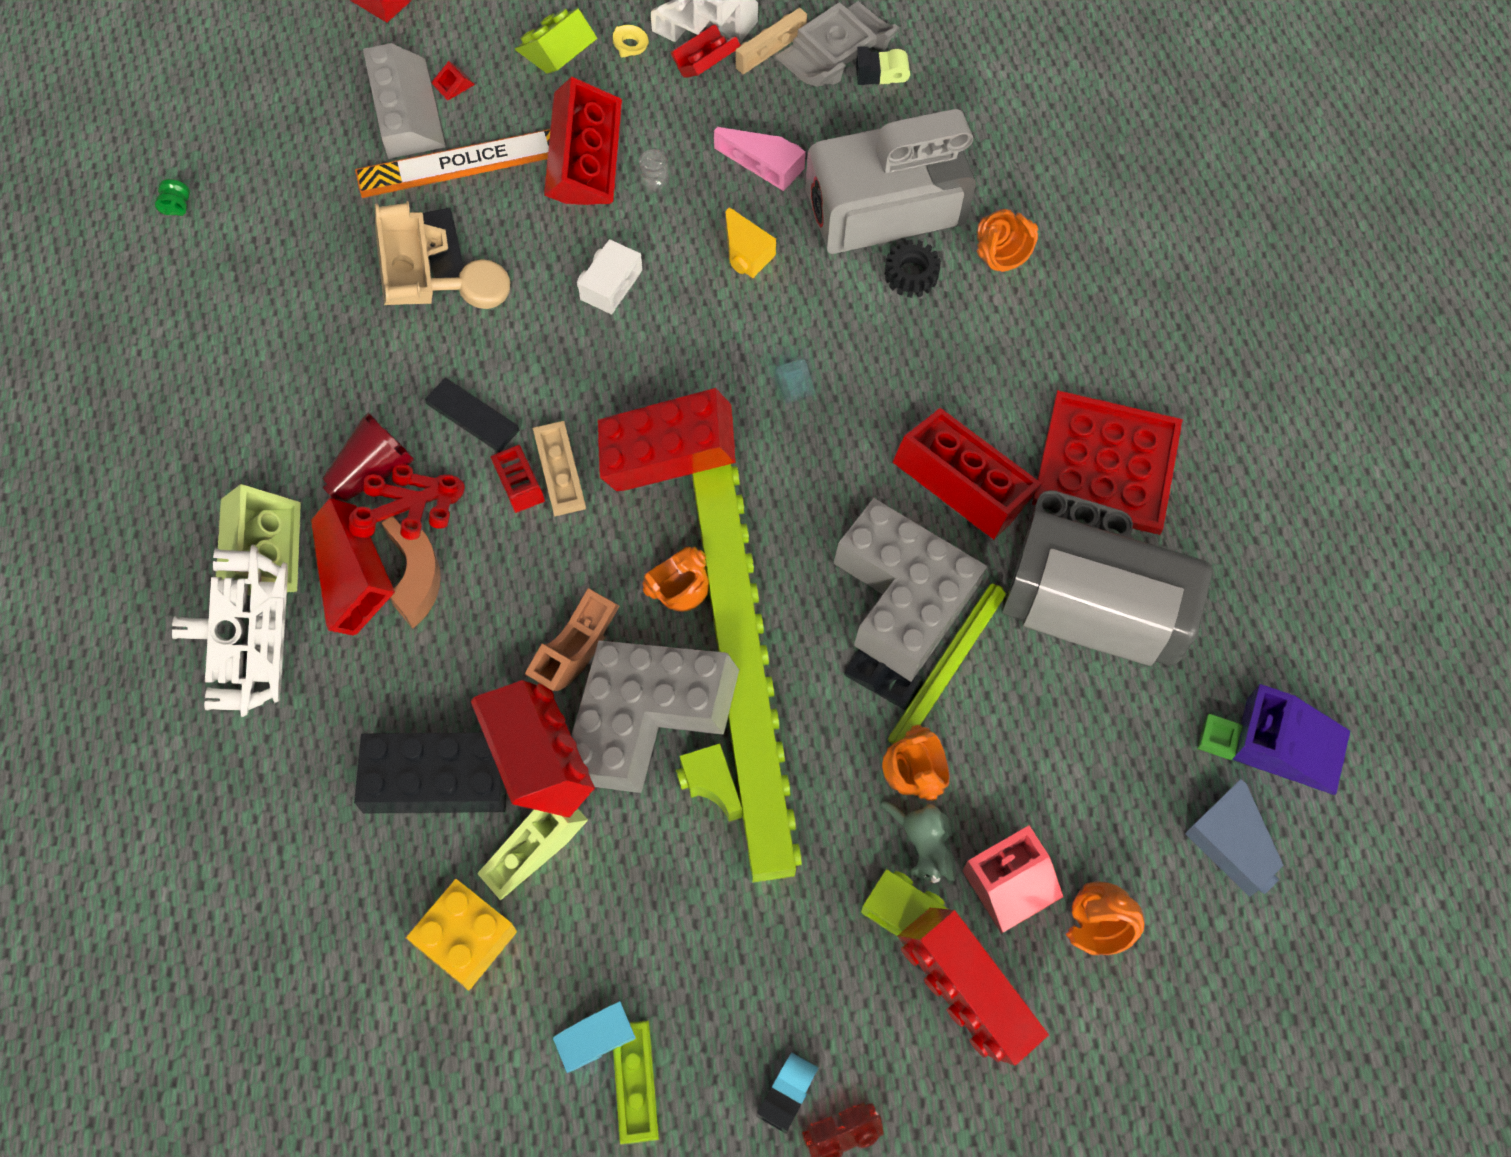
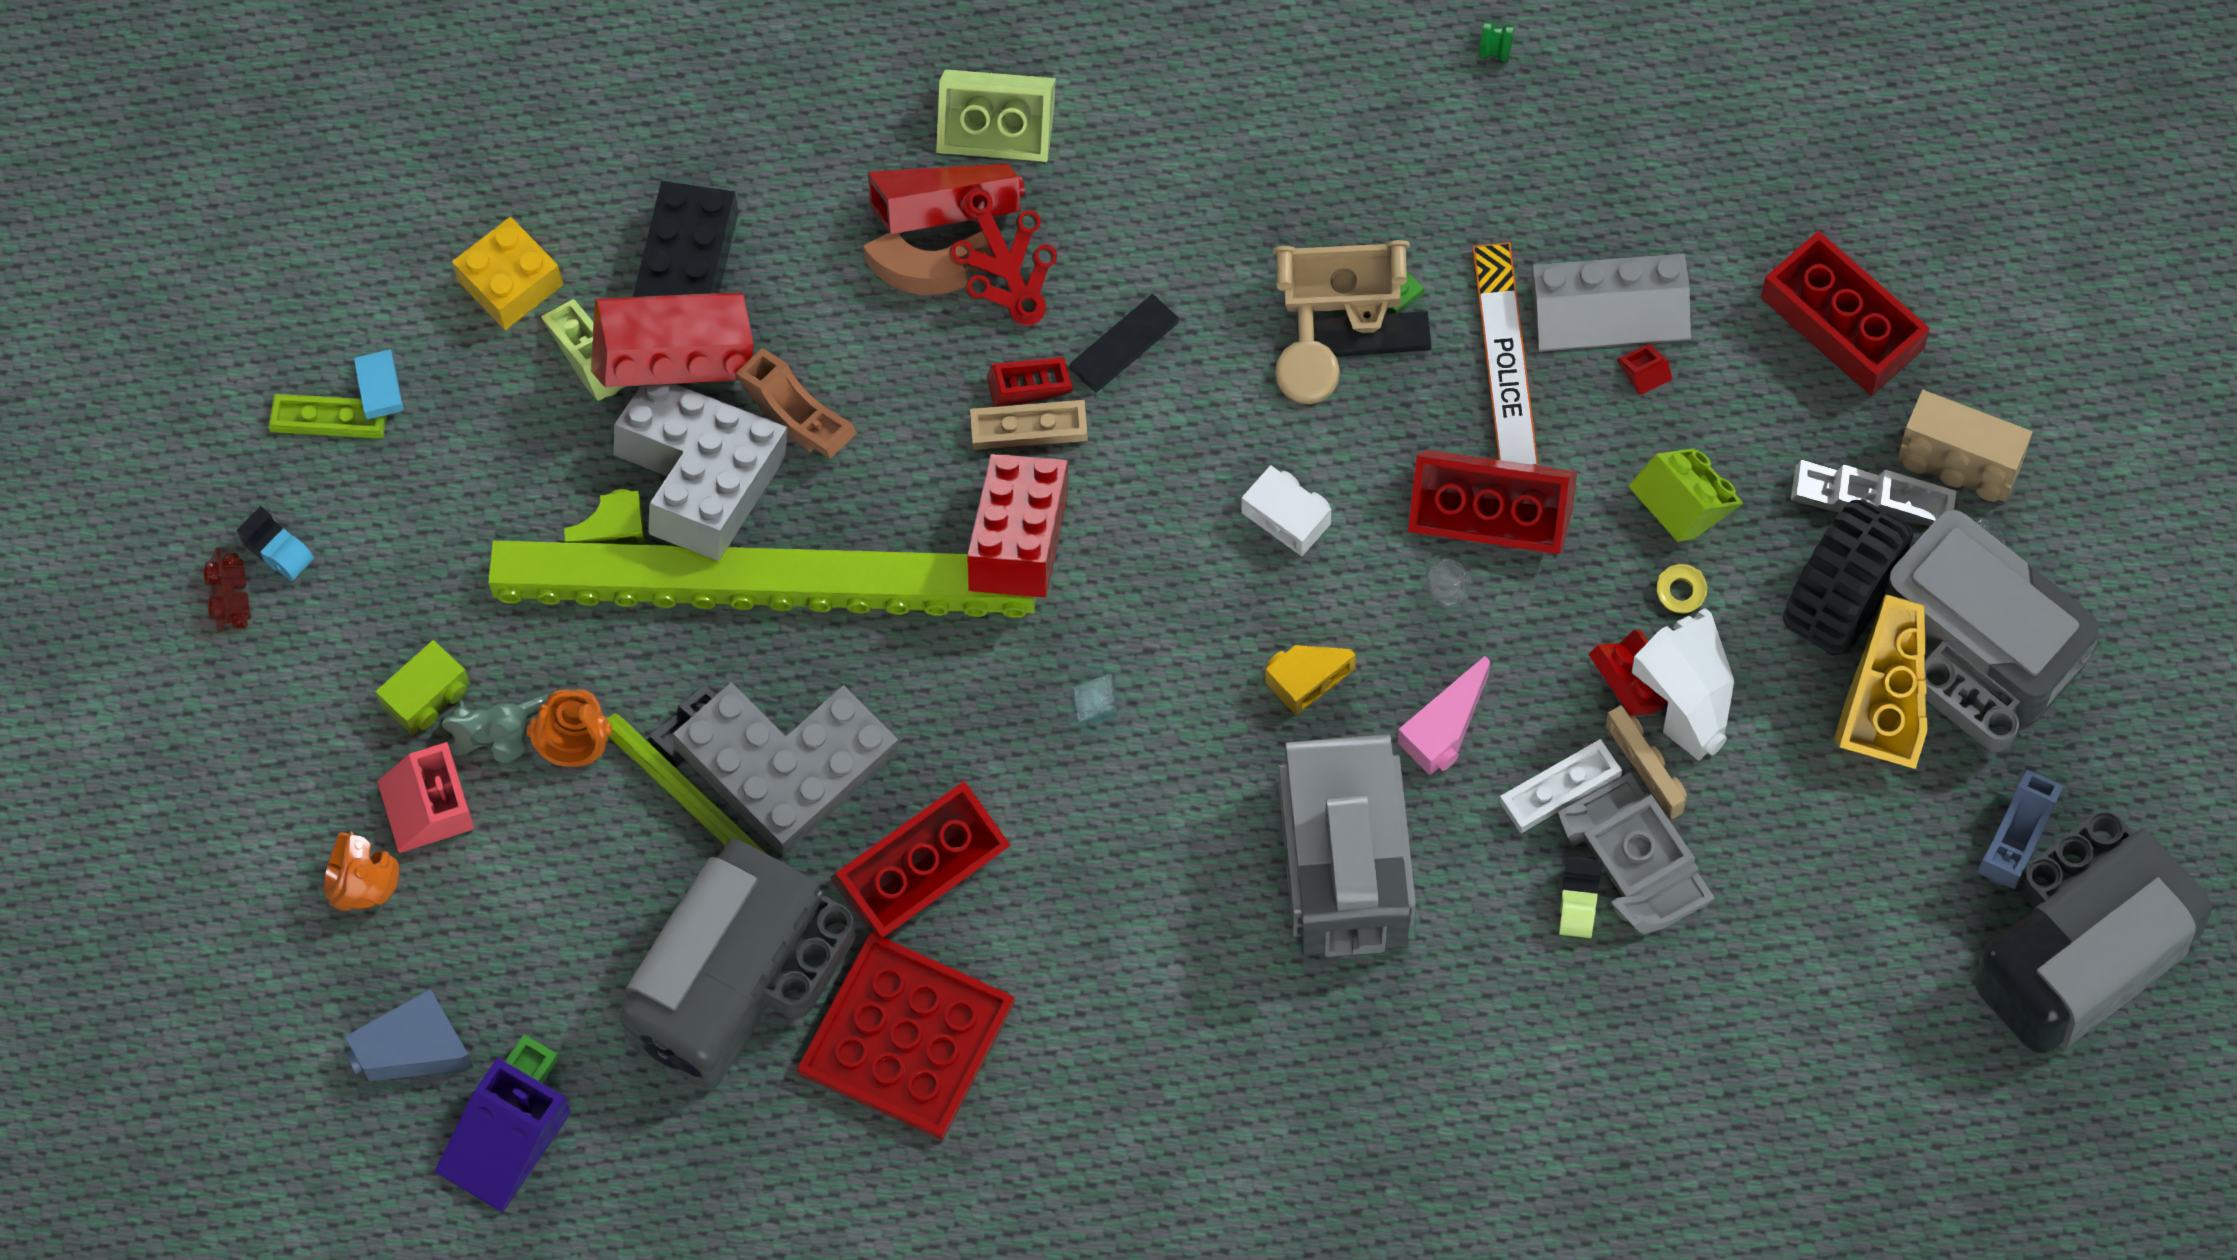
camera: 105 degrees right, 0 degrees up
(265, 632) = (877, 87): white piece -> none
(365, 453) = (1078, 227): dark red cone -> none
(679, 581) = (848, 520): orange helmet -> none
(798, 88) = (1560, 786): none -> white plate
(912, 254) = (1227, 847): black tyre -> none
(972, 986) = (318, 712): red brick -> none
(1006, 239) = (1248, 981): orange helmet -> none

